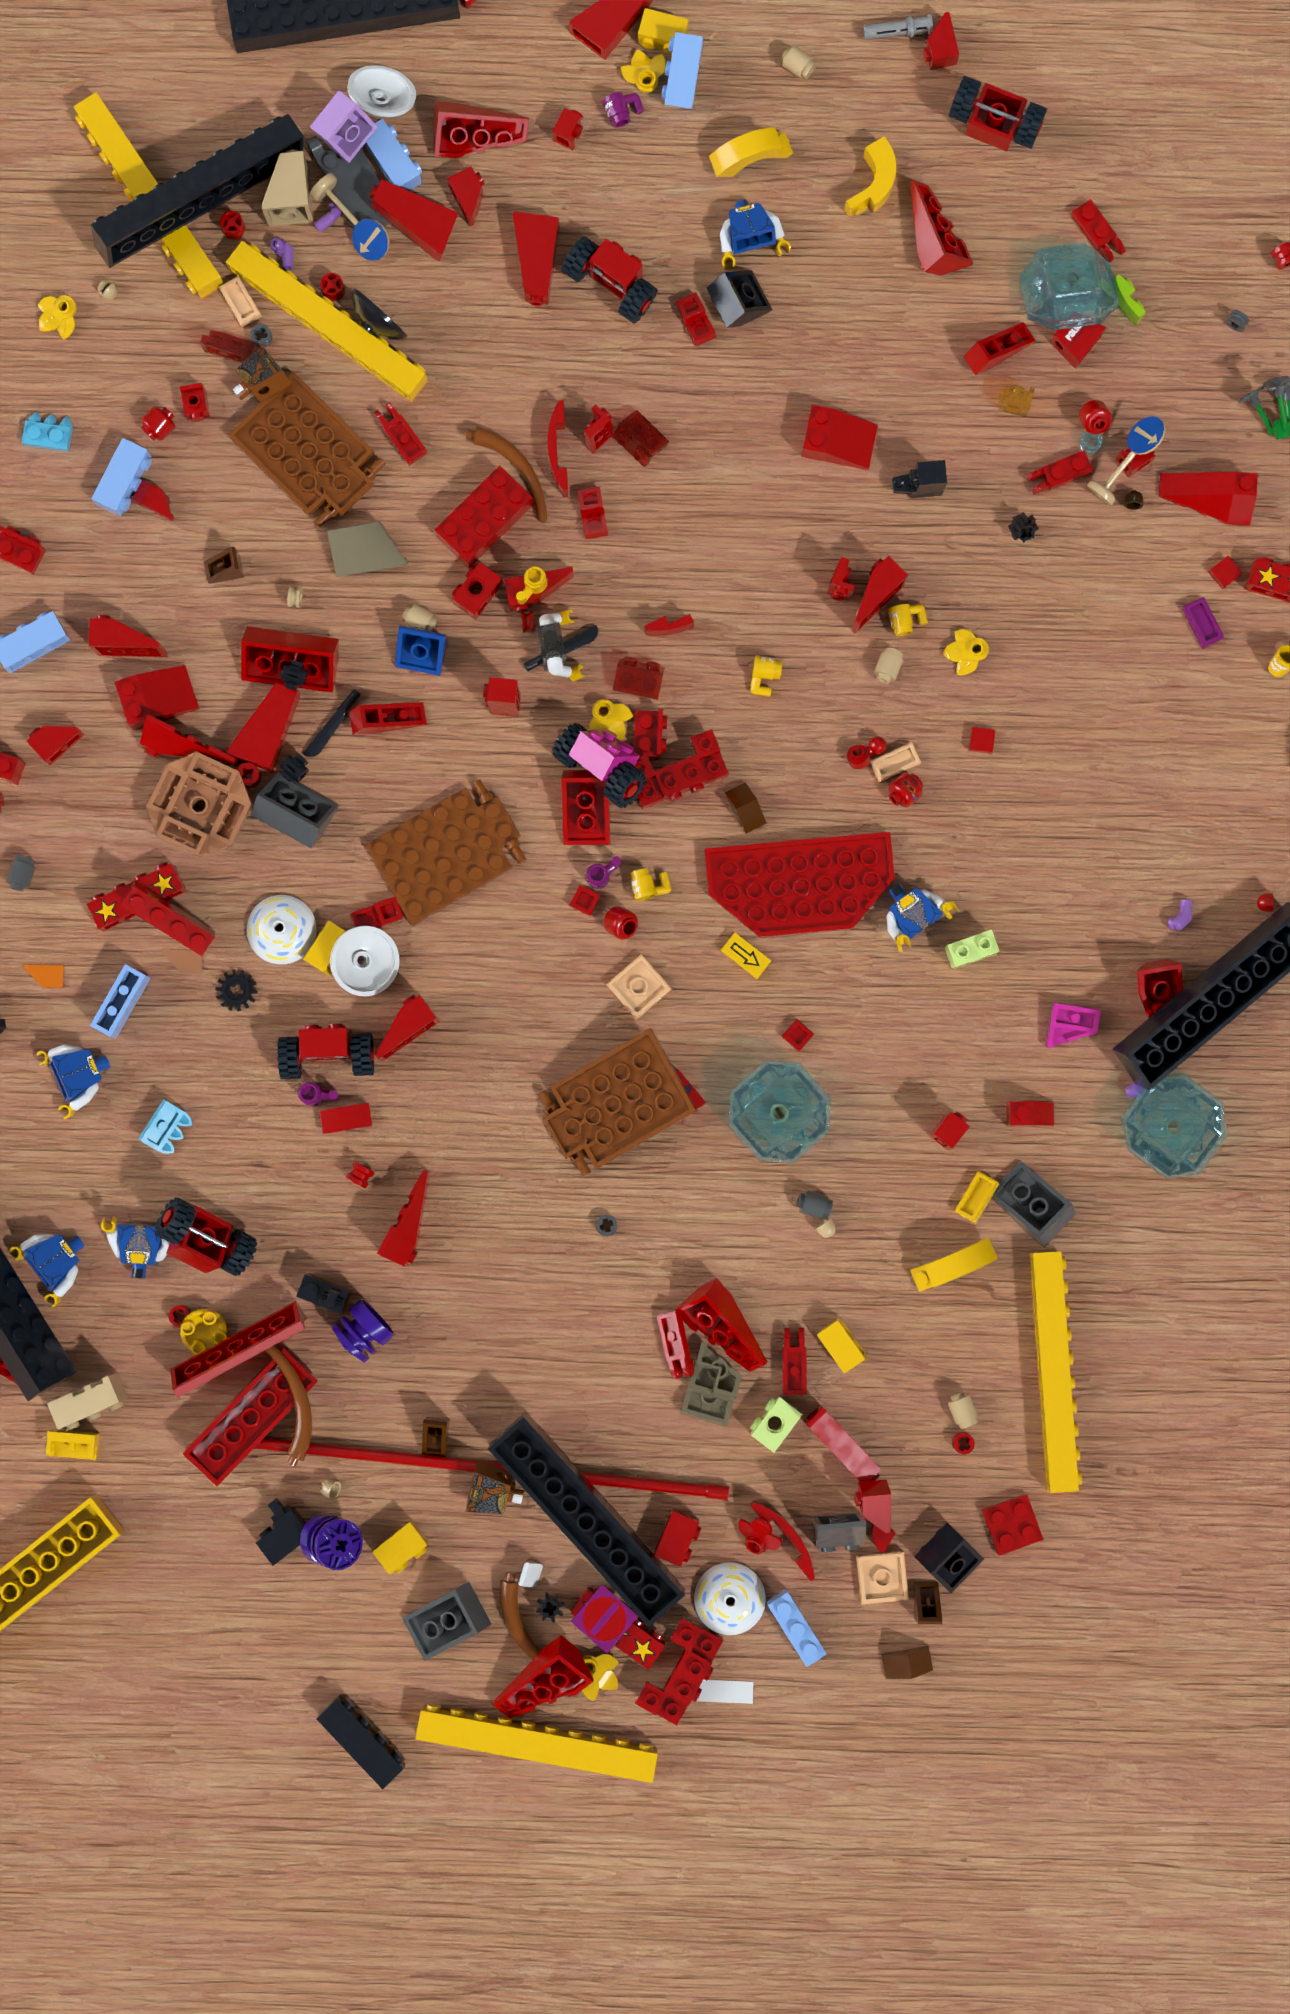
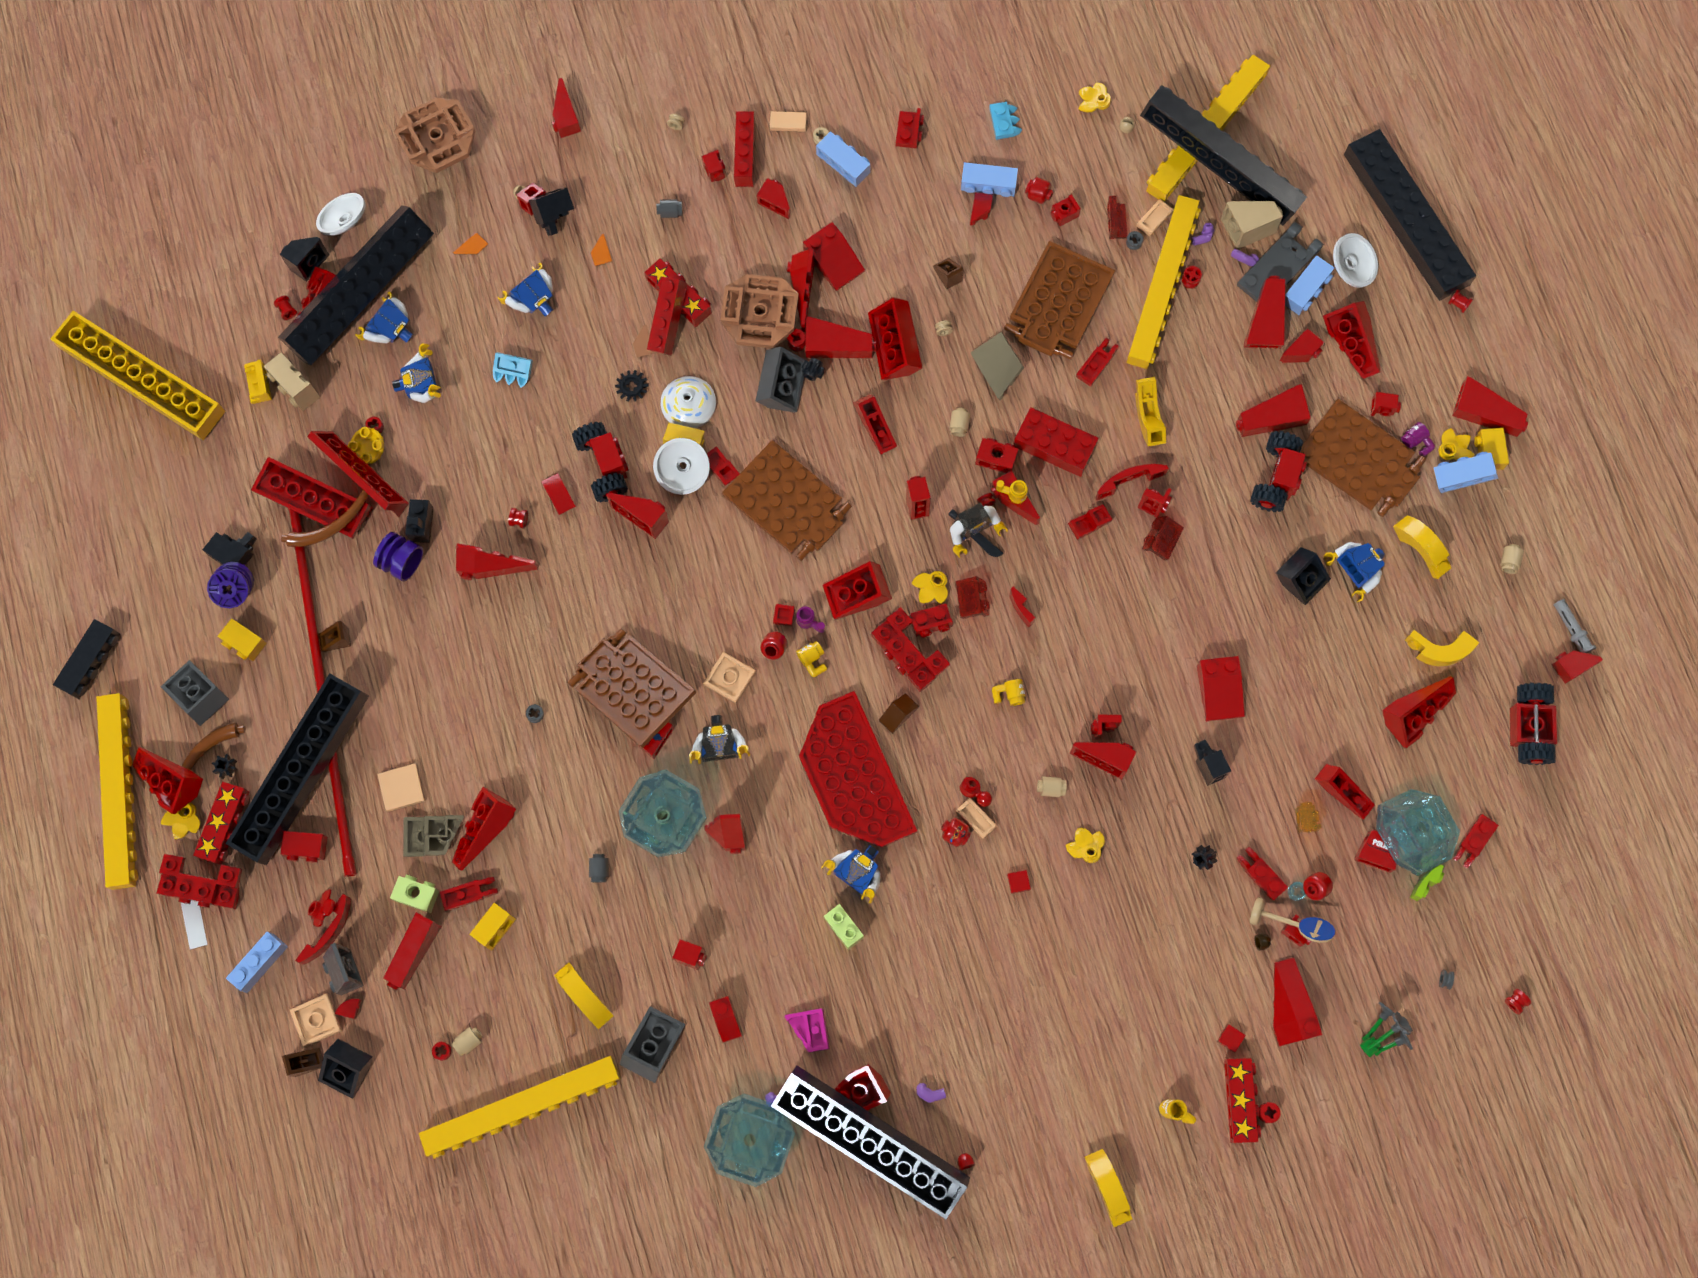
camera: 75 degrees right, 10 degrees down
(115, 639) = (864, 210): red slope -> none
(120, 1001) = (595, 305): light blue brick -> none
(204, 1239) = (433, 418): brick -> none
(229, 220) = (1211, 188): red wheel -> none
(260, 376) = (1102, 248): torso -> none
(294, 675) = (881, 343): black gear -> none
(313, 1094) = (570, 465): magenta piece -> none
(328, 730) = (852, 386): black piece -> none
(331, 1488) = (270, 575): tan hinge -> none
(343, 126) = (1313, 239): lavender brick -> none
(368, 235) = (1241, 288): piece -> none
(374, 318) = (1177, 311): black dish -> none
(420, 650) = (935, 430): blue slope -> none
(488, 399) = (1148, 412): none -> yellow arch
(491, 1490) = (301, 690): torso -> none
(502, 446) = (1114, 445): dark orange animal -> none
(530, 1574) = (247, 743): white slope -> none
(604, 1618) = (224, 807): piece -> none
(605, 758) = (895, 588): brick -> none
(621, 180) = (1361, 458): none -> dark orange plate
(643, 1406) = (401, 787): none -> light nougat tile
(675, 1344) = (455, 795): red hinge -> none
(695, 319) = (1273, 549): red slope -> none
(714, 1022) = (718, 743): none -> torso
(726, 1581) = (280, 906): white dish -> none
(745, 956) = (780, 751): yellow tile -> none
(797, 1035) = (731, 808): red tile -> none
(826, 1228) = (582, 884): tan hinge -> none
(828, 1043) = (728, 832): none -> red wedge
(875, 1503) = (370, 991): red slope -> none
(901, 618) = (1094, 784): yellow piece -> none
(907, 1663) = (252, 1063): reddish brown slope -> none
(976, 1197) = (644, 997): yellow tile -> none
(1012, 1524) = (386, 1113): red plate -> none
(1203, 623) = (1181, 1033): magenta tile -> none

